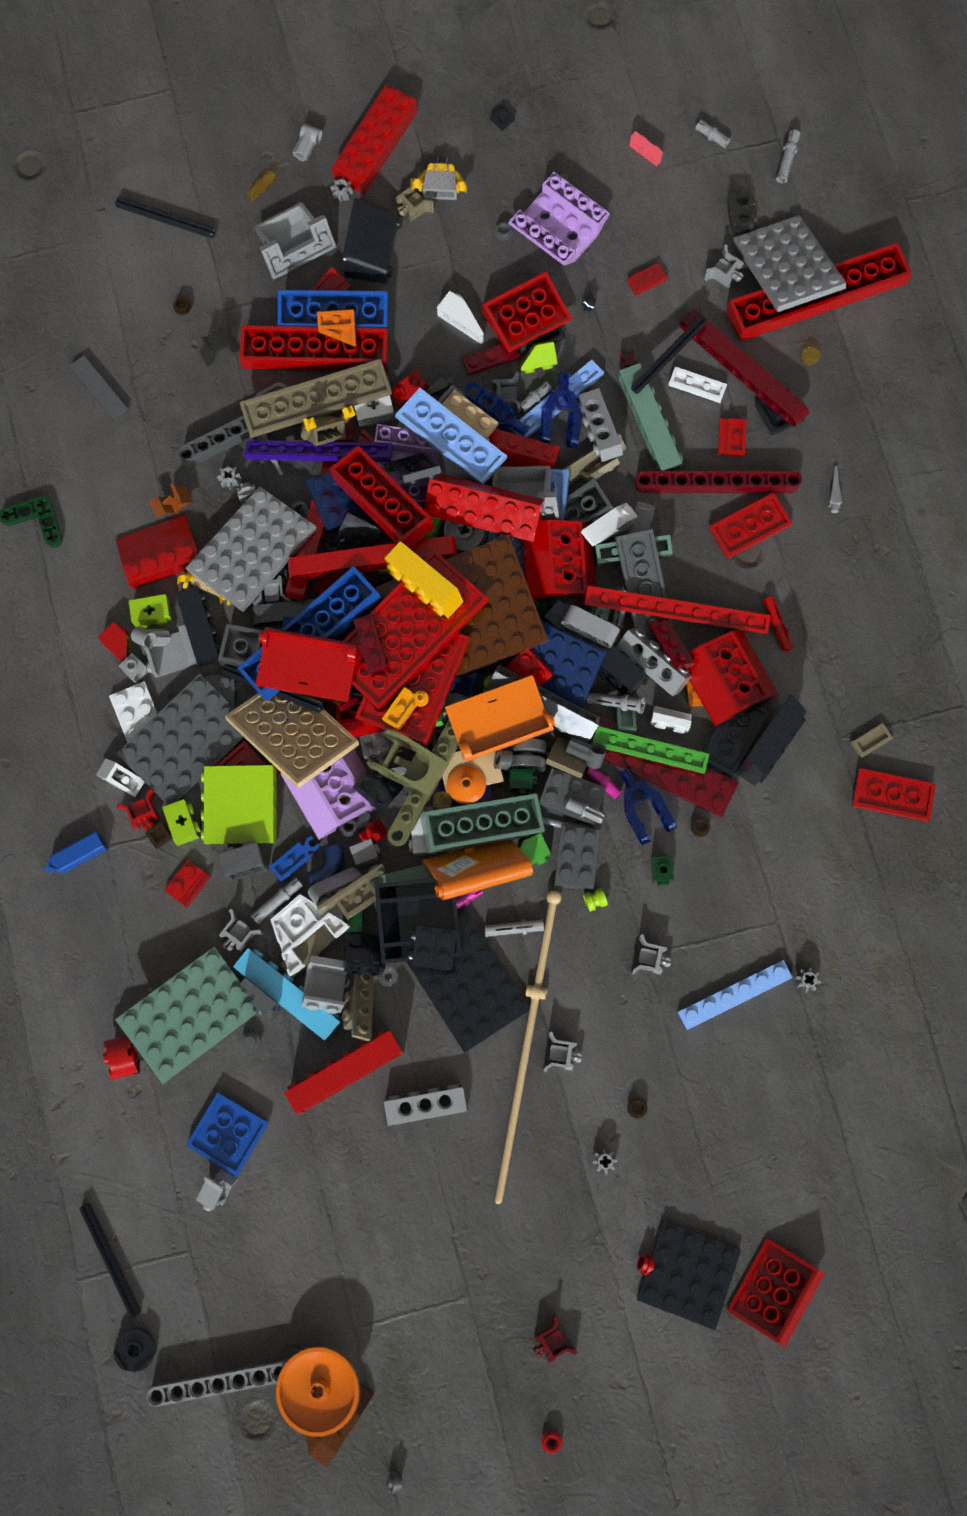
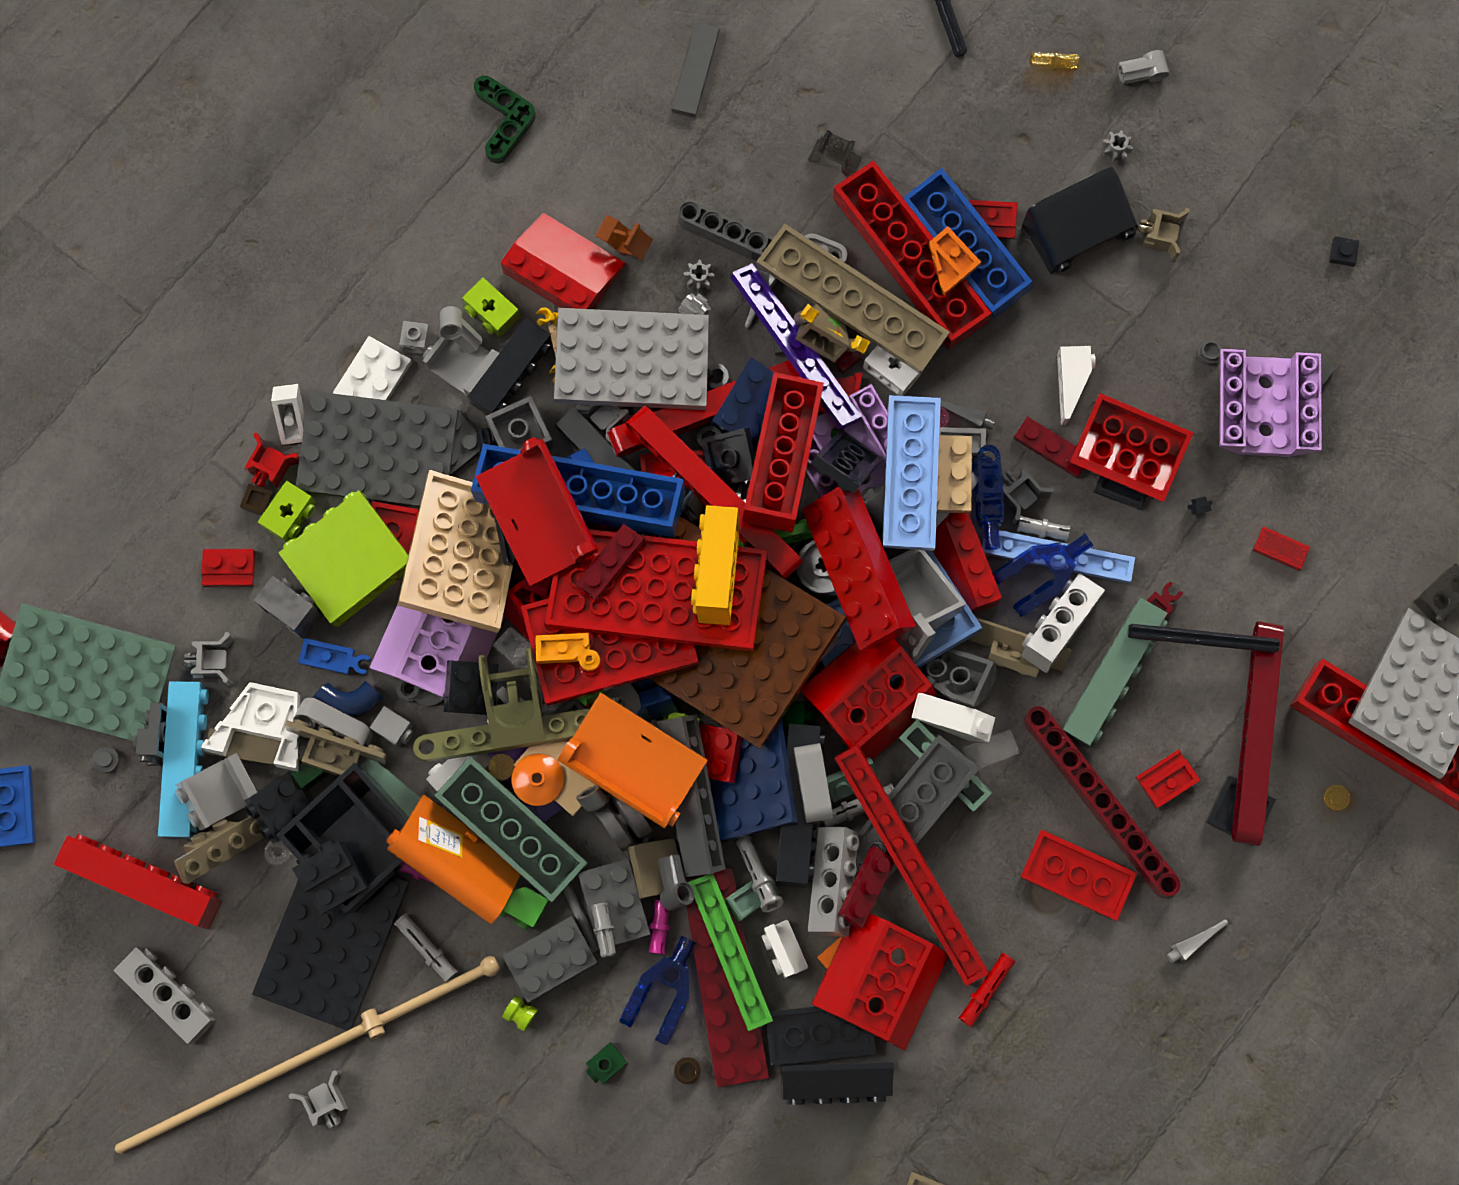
camera: 50 degrees right, 0 degrees up
(76, 853) = (177, 432): blue piece -> none
(116, 641) = (431, 298): red slope -> none
(182, 306) = (853, 83): dark brown plate -> none
(274, 902) = (286, 676): light grey pin -> none
(293, 239) = (1017, 138): light grey windscreen -> none
(374, 830) = (424, 720): red plate -> none
(375, 139) = (1204, 136): red brick -> none
(407, 387) = (947, 386): red plate -> none
(440, 181) = (1212, 240): torso -> none
(522, 781) = (593, 837): dark green brick -> none
(539, 355) = (1093, 498): lime slope -> none
(646, 148) = (1436, 426): coral plate -> none
(652, 957) = (499, 1123): light grey piece -> none
(697, 384) = (1199, 695): white plate -> none
(726, 269) = (1362, 628): light grey piece -> none

